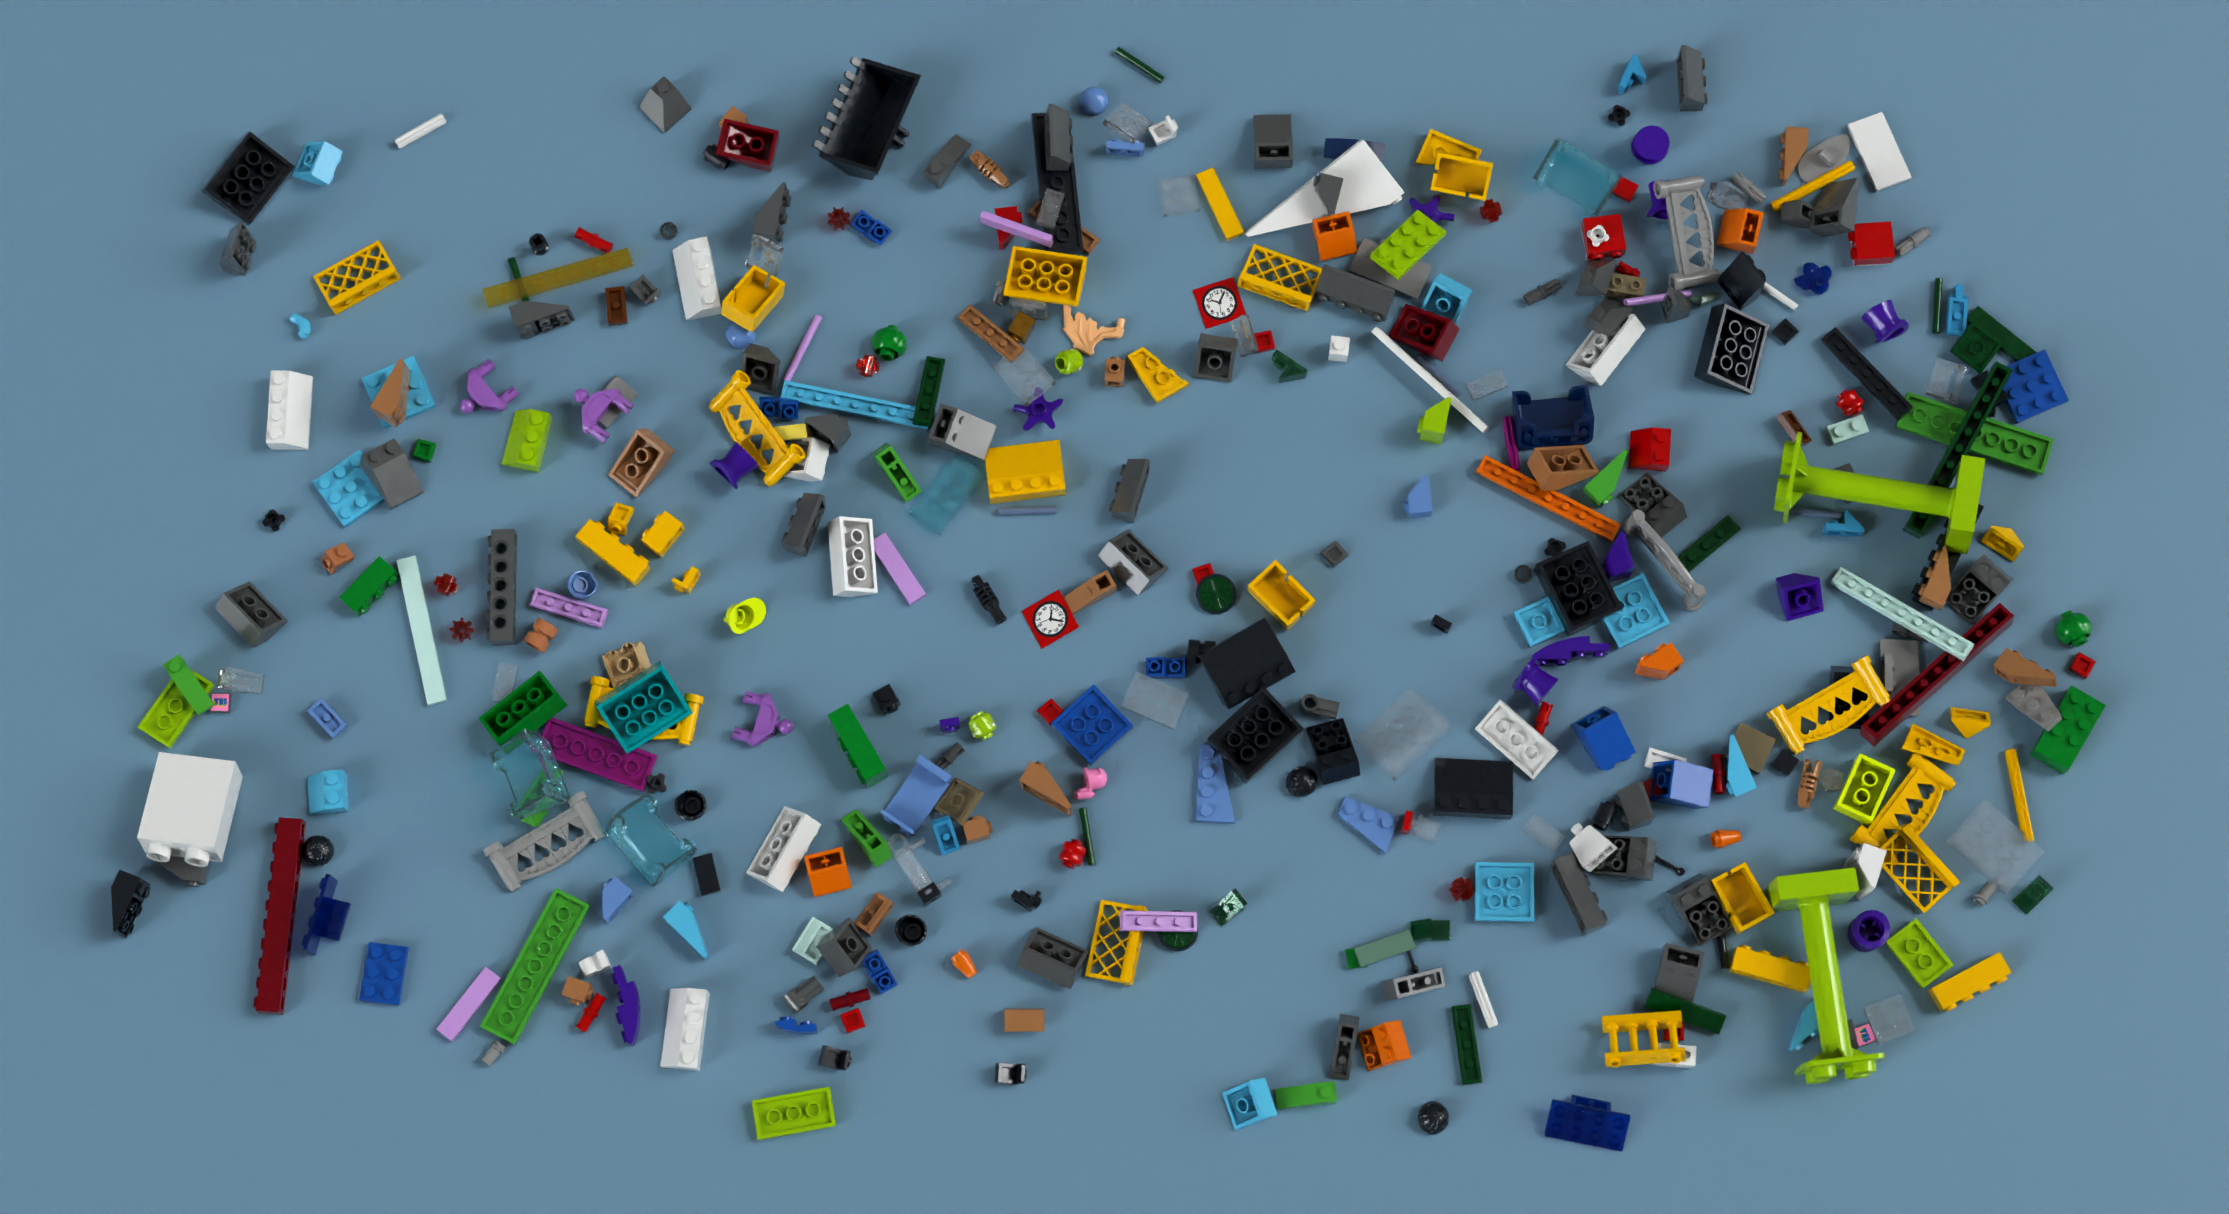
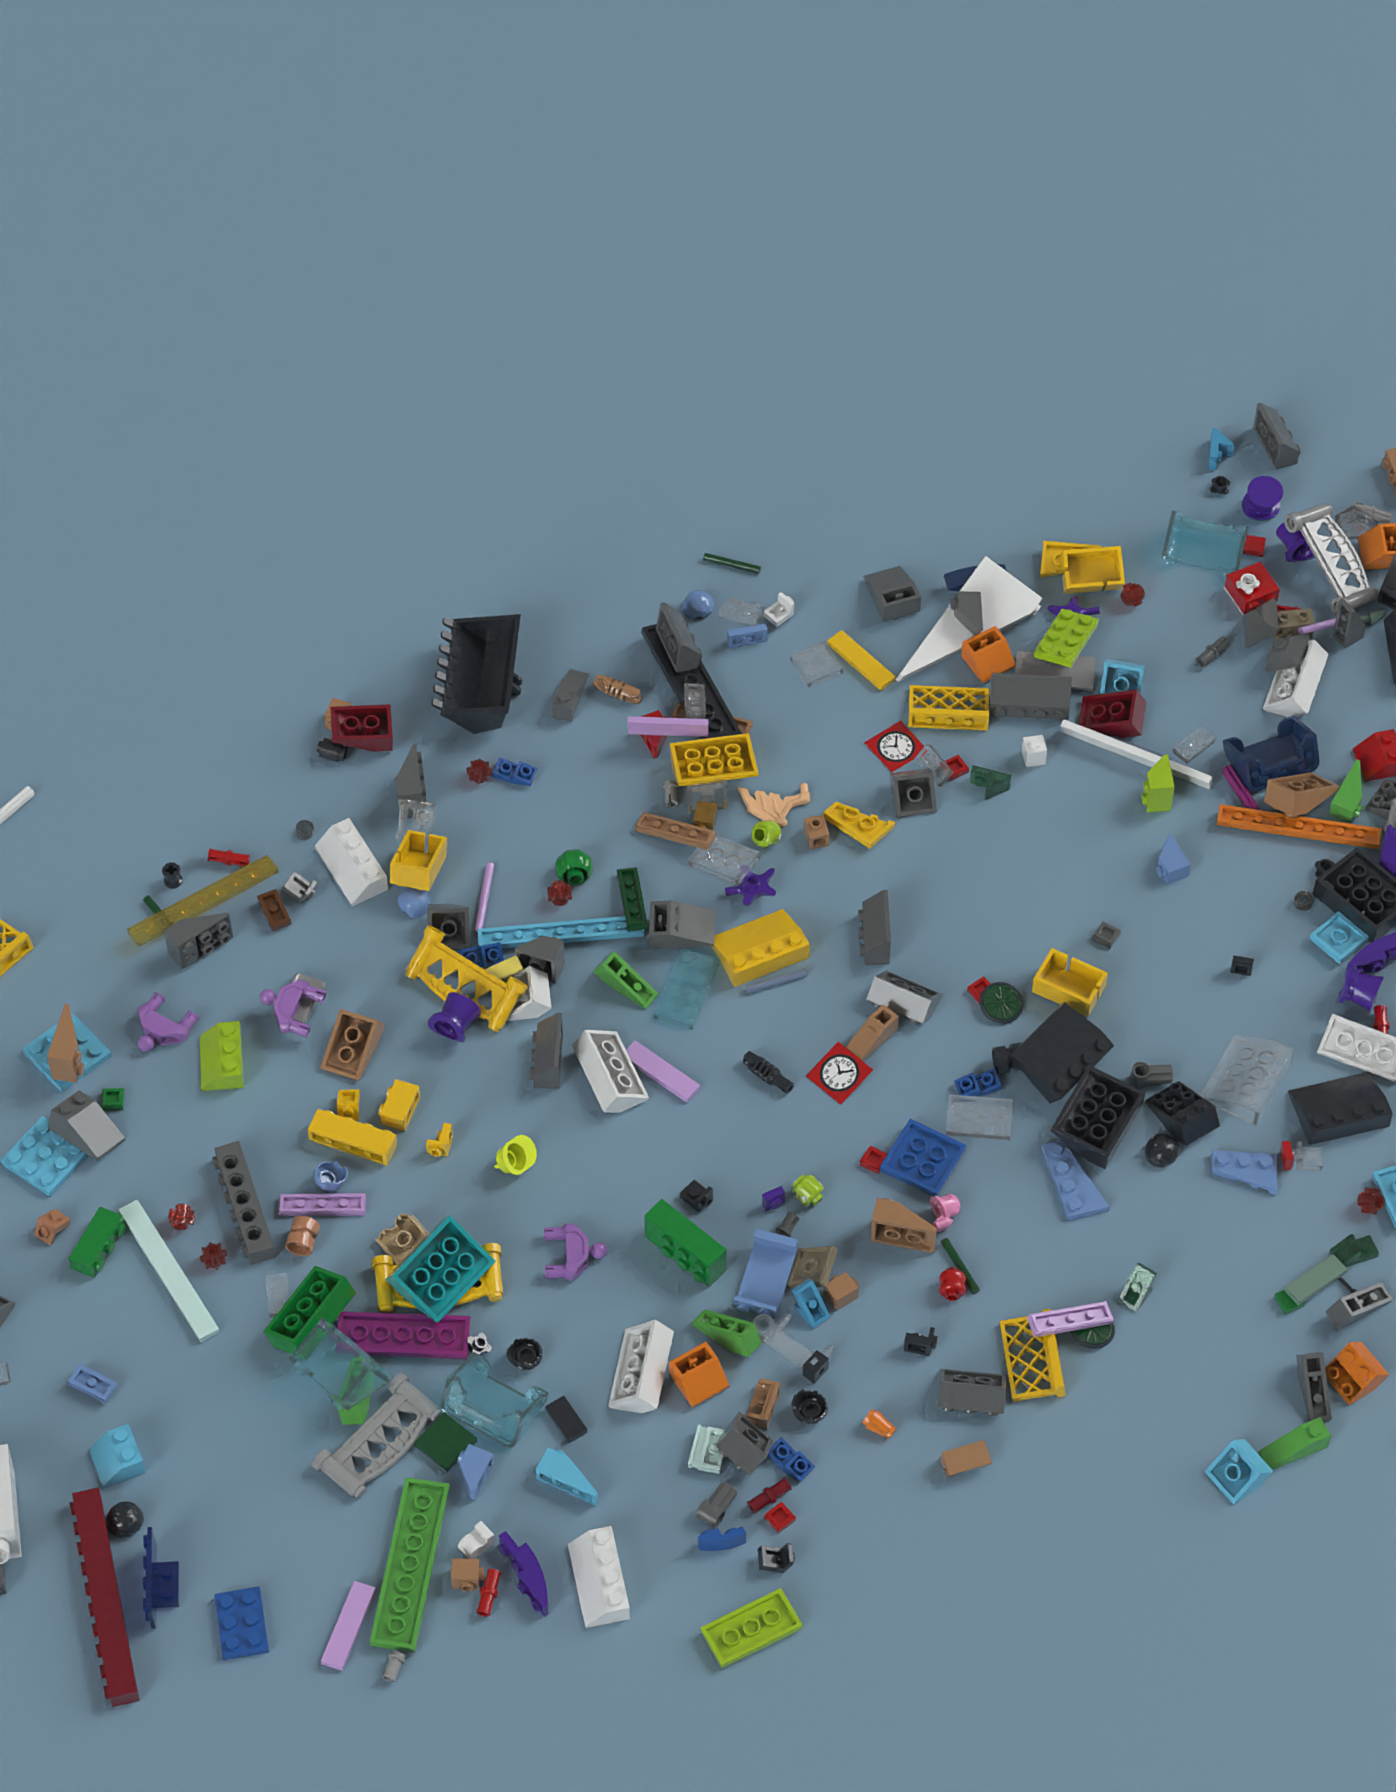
camera: 20 degrees left, 20 degrees down
(600, 863) = (445, 1441): none -> dark green tile
(664, 104) = (260, 718): dark grey slope -> none
(1010, 1073) = (972, 1517): black bracket -> none

